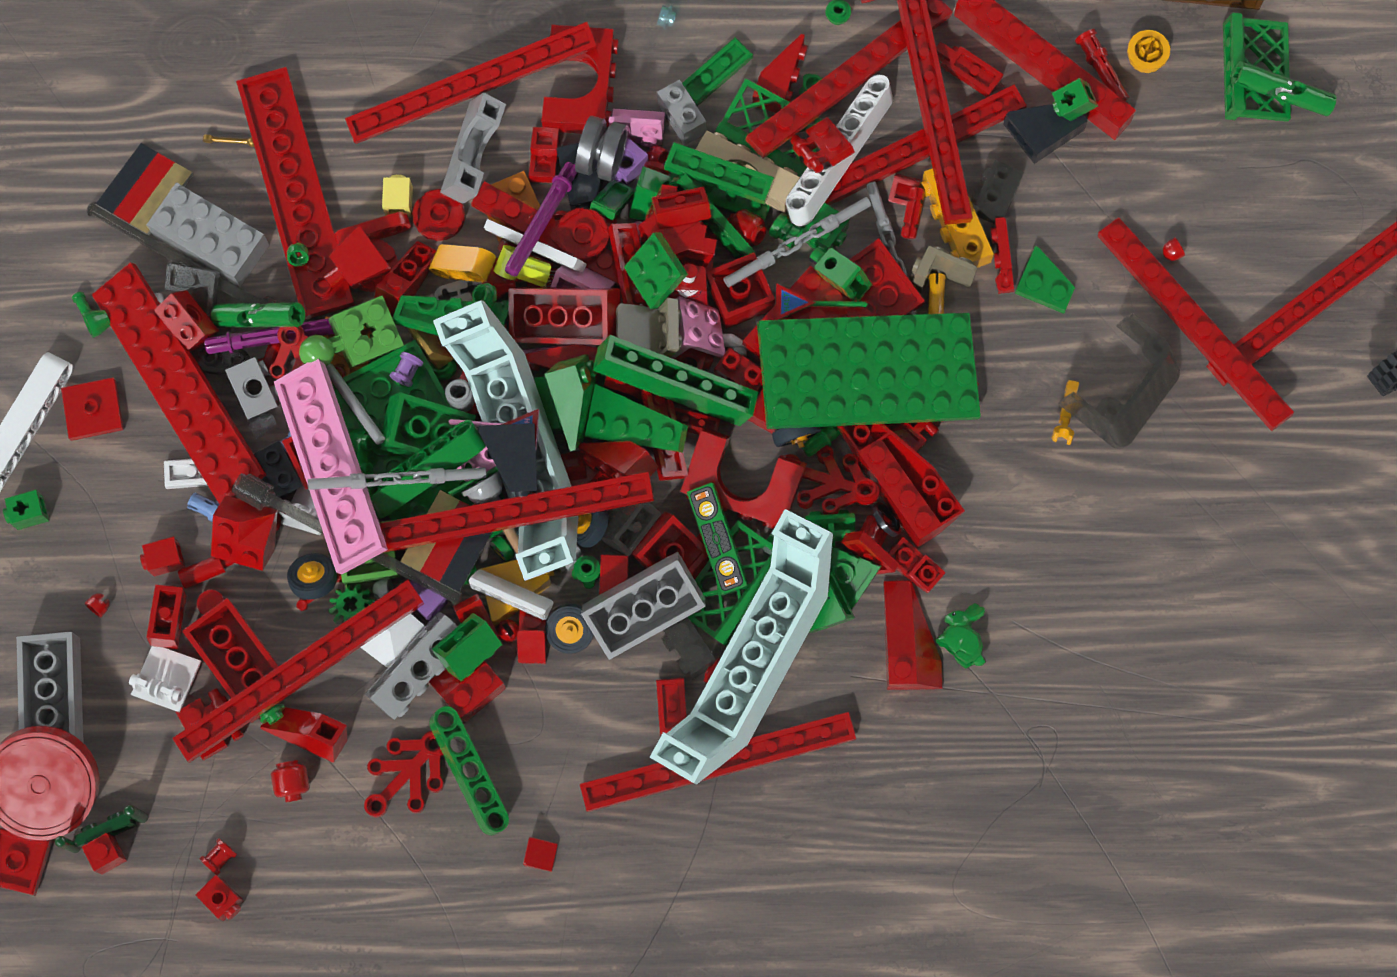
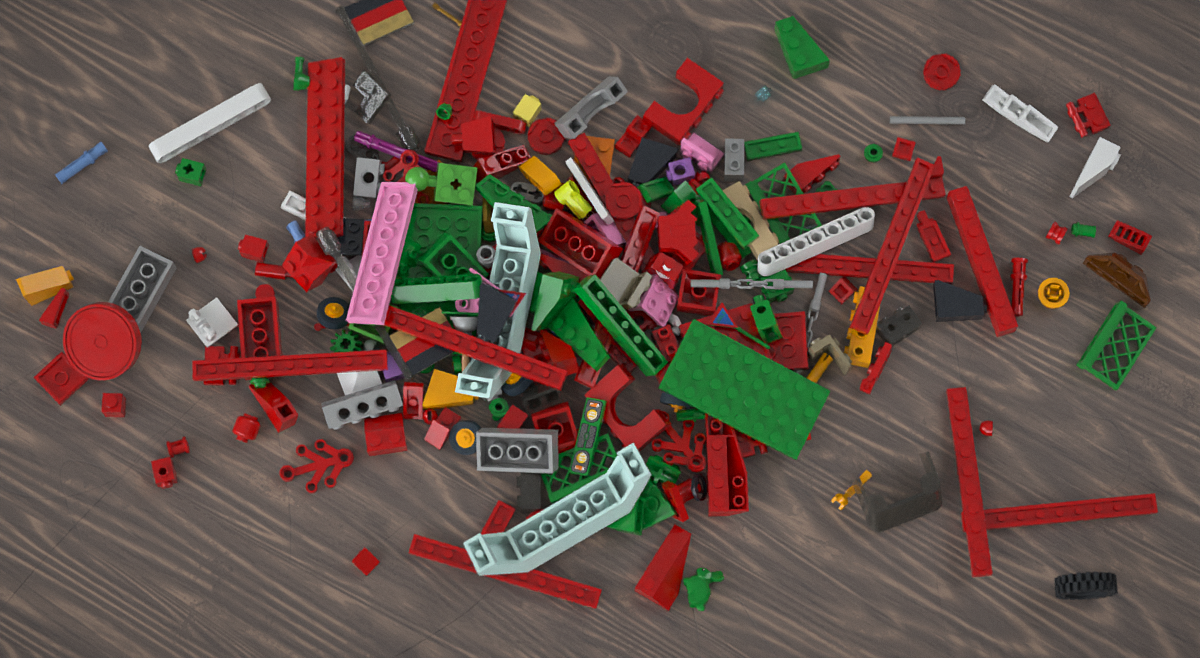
camera: 30 degrees right, 0 degrees up
(92, 409) = (266, 133): red plate -> none
(116, 824) = (130, 392): dark green plate -> none
(166, 616) = (233, 286): red brick -> none
(186, 320) = (353, 112): red brick -> none
(208, 234) = (399, 67): light grey brick -> none
(258, 315) = (397, 135): green piece -> none
(355, 405) = (420, 224): light grey bar -> none
(358, 480) = (439, 297): light grey piece -> none
(406, 369) = (464, 221): medium lavender bush -> none
(467, 647) = (397, 411): green brick -> none
(469, 756) = (348, 494): green beam -> none
(471, 82) = (615, 65): red plate -> none
(485, 292) = (538, 204): green plate -> none
(511, 594) = (443, 395): white slope -> none
(561, 184) = (624, 165): magenta axle -> none
(601, 148) = (666, 154): flat silver wheel -> none
(655, 270) = (650, 250): green plate -> none
(681, 207) = (689, 221): red slope -> none
(828, 140) = (810, 233): red plate -> none
(913, 213) = (838, 307): red axle -> none
(916, 566) = (699, 526): red slope -> none
(1045, 283) = (893, 400): green wing -> none
(1082, 103) = (981, 297): green brick -> none
(1280, 87) = (1117, 362): green piece -> none

